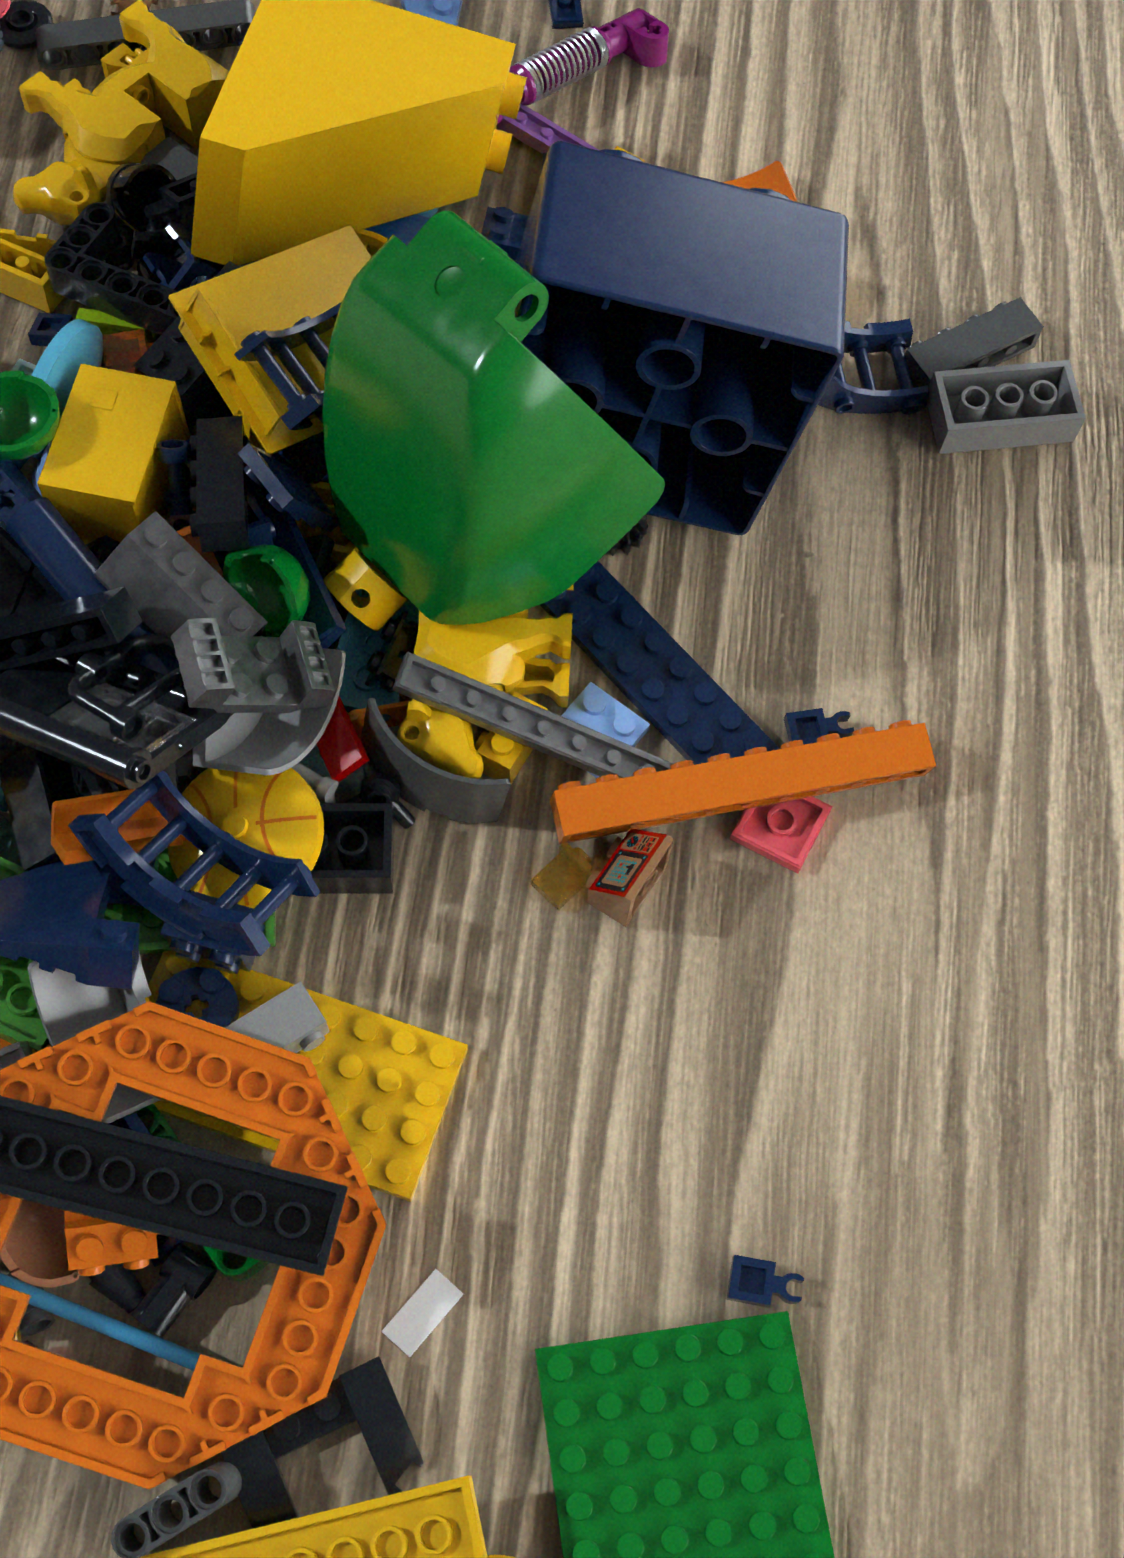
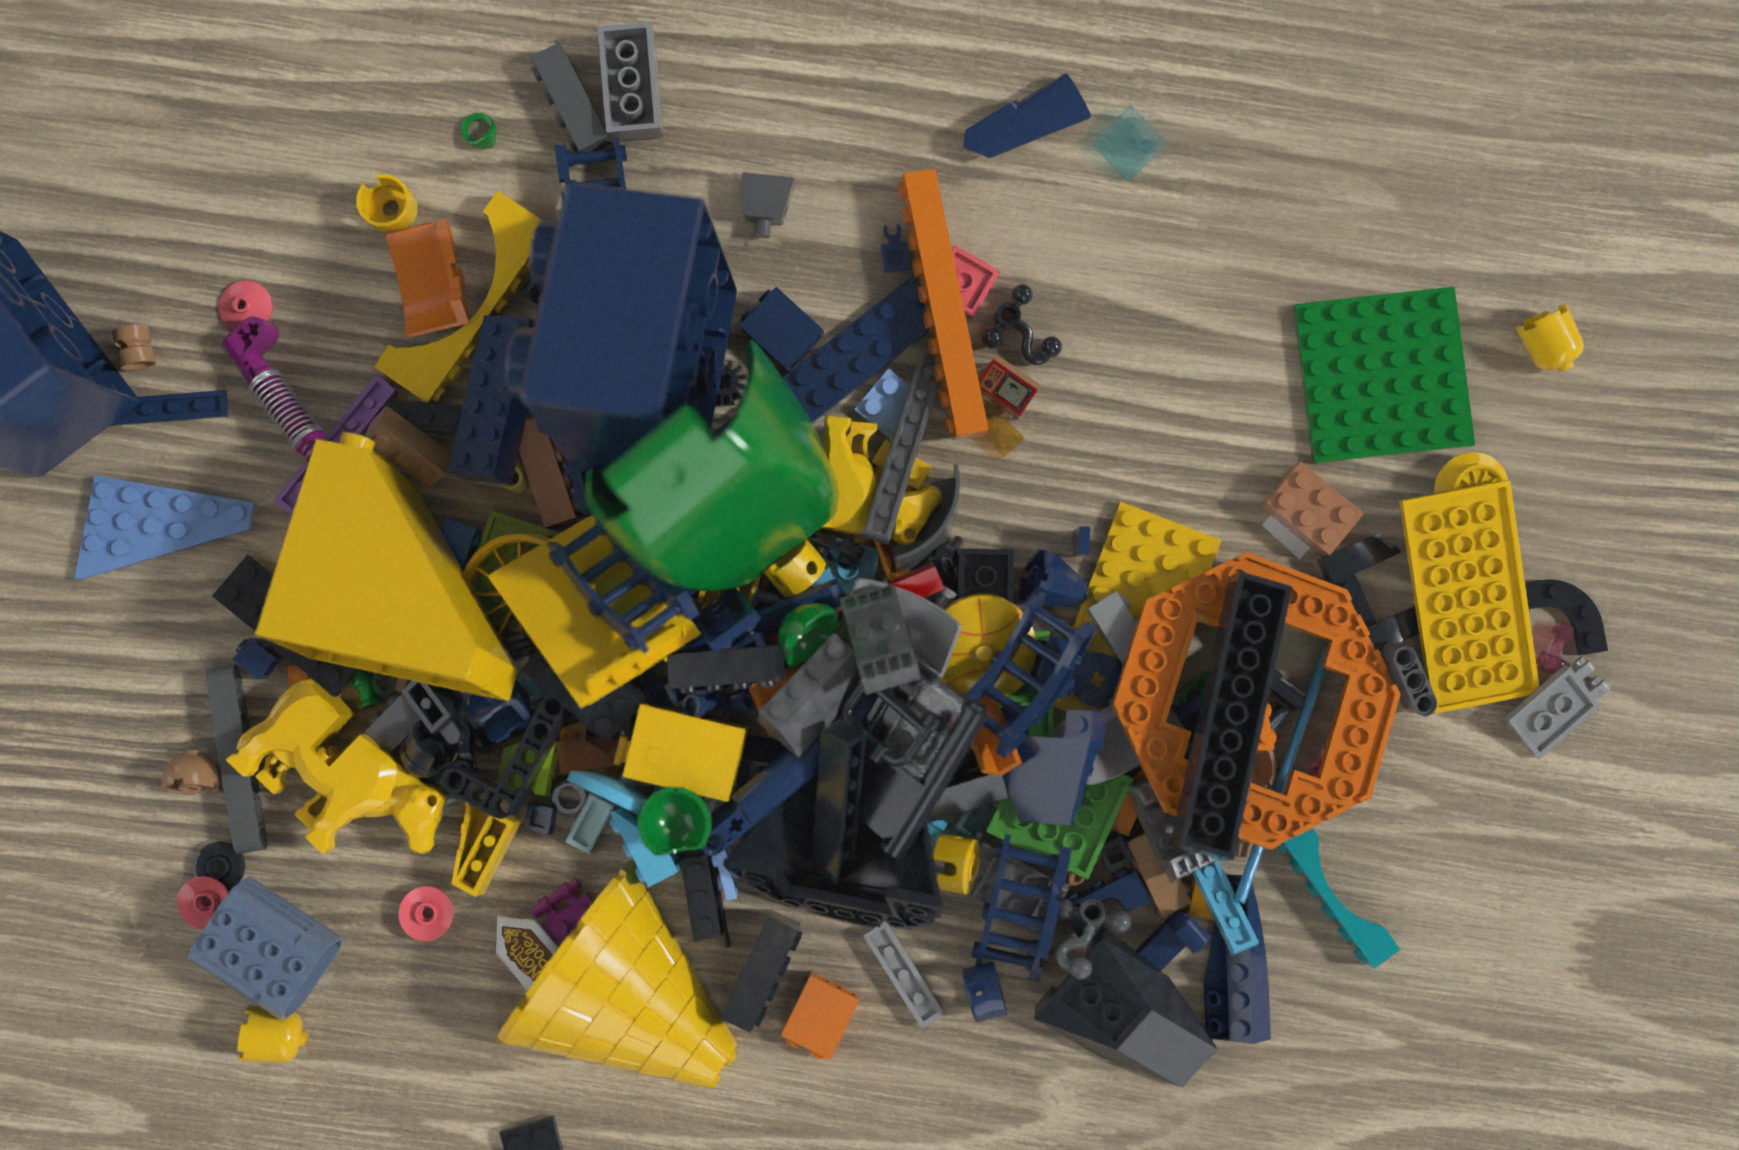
camera: 85 degrees left, 20 degrees up
(342, 945) = (1055, 578): none -> dark blue cone
(403, 978) = (1081, 541): none -> dark blue tile
(458, 1340) = (1311, 509): none -> nougat brick
(516, 169) = (408, 447): none -> medium nougat brick
(688, 41) = (256, 298): none -> coral dish
(694, 589) = (781, 329): none -> dark blue brick
(702, 858) = (993, 337): none -> black piece
(755, 1282) = (1277, 322): dark blue plate -> none
(815, 165) = (373, 200): none -> yellow piece
(867, 568) = (766, 200): none -> dark grey torso
(911, 265) = (486, 141): none -> green piece
(1009, 1048) = (1129, 143): none -> clear light blue plate
(1020, 891) = (1034, 117): none -> dark blue panel

